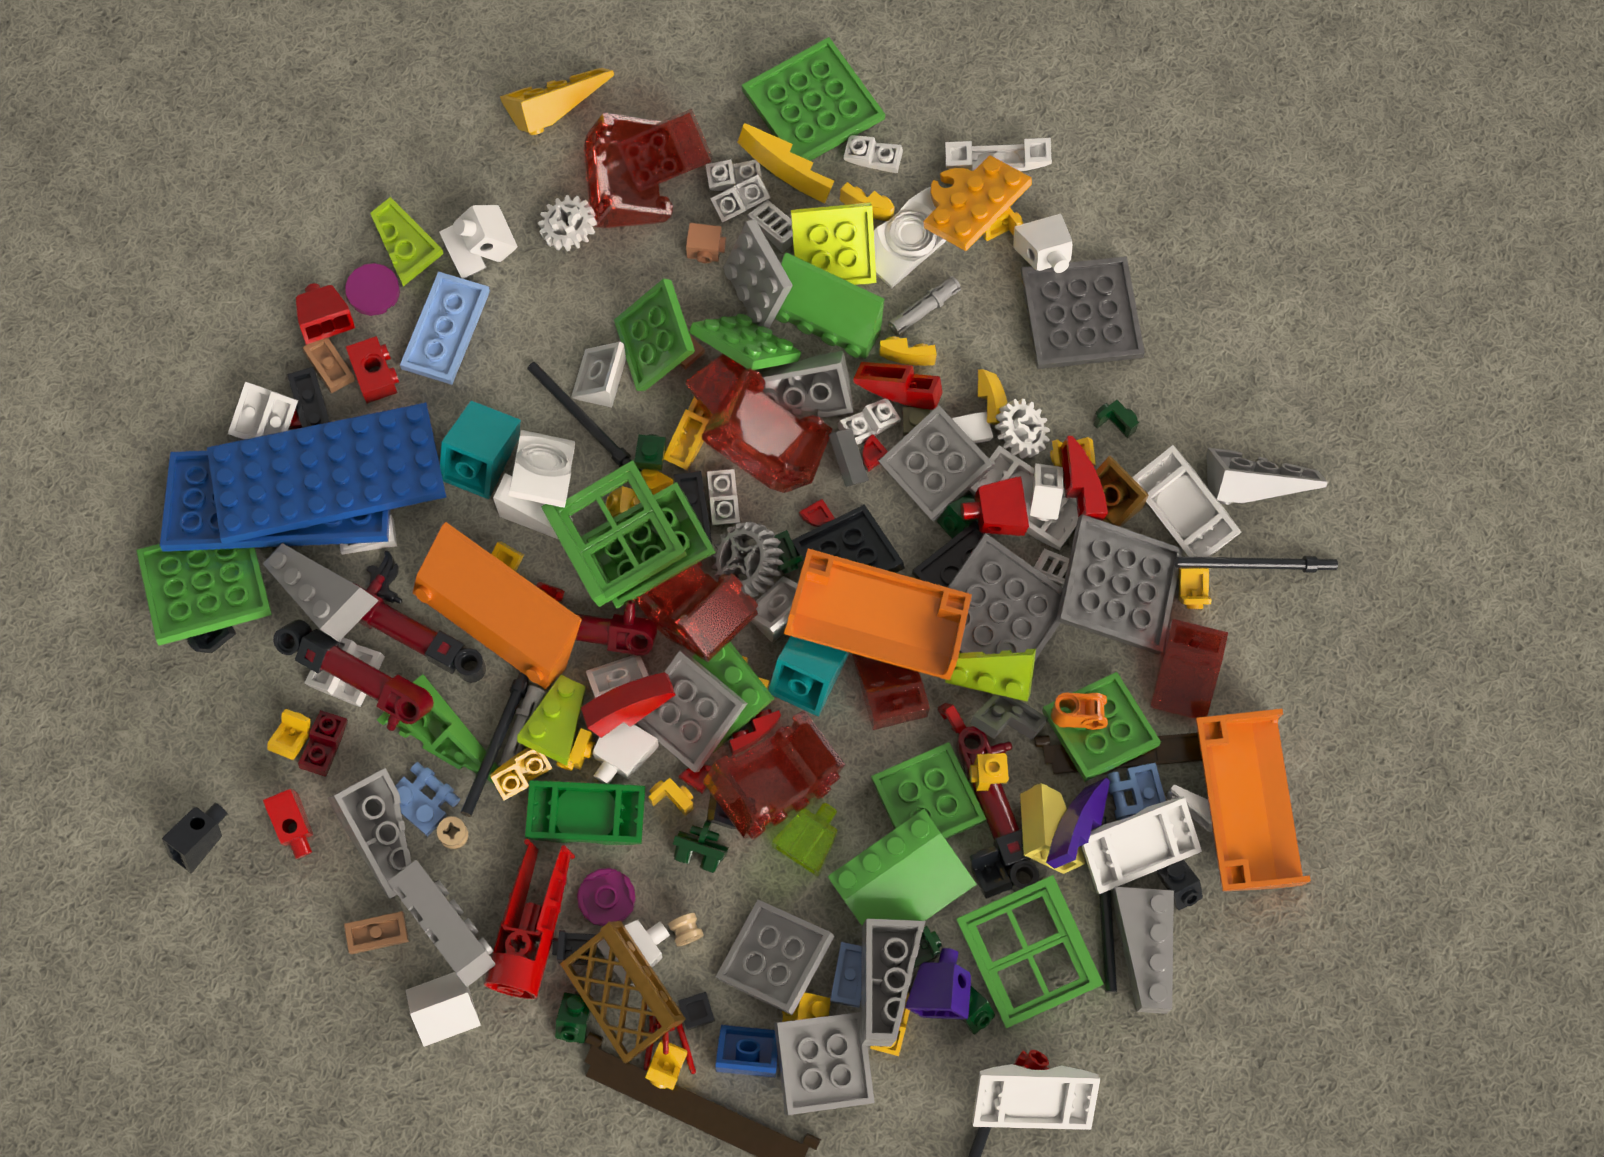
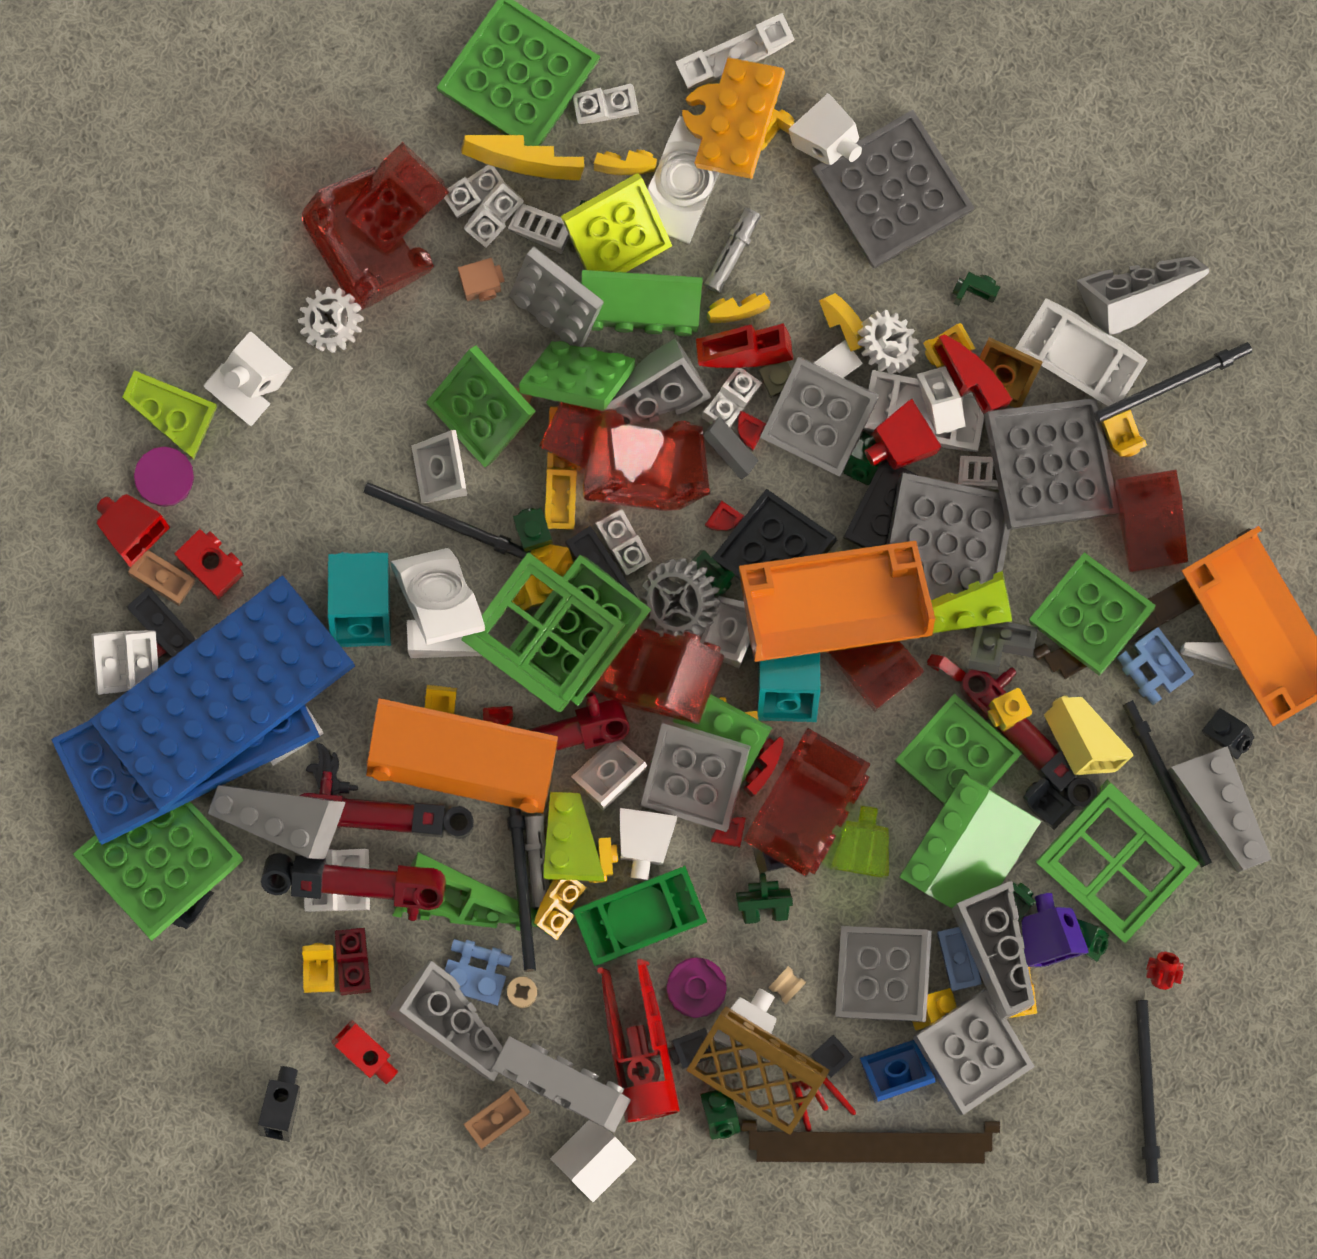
camera: 30 degrees left, 10 degrees up
(445, 328) = (260, 486): light blue plate -> none
(541, 107) = (244, 197): yellow wedge -> none
(627, 703) = (635, 795): red slope -> none
(665, 1069) = (828, 1124): yellow bracket -> none
(679, 796) = (722, 860): yellow bracket -> none
(1035, 1098) = (1182, 997): white slope -> none
(1076, 824) = (1112, 715): dark purple slope -> none
(1084, 711) = (1073, 607): orange piece -> none
(1140, 844) = (1177, 714): white slope -> none

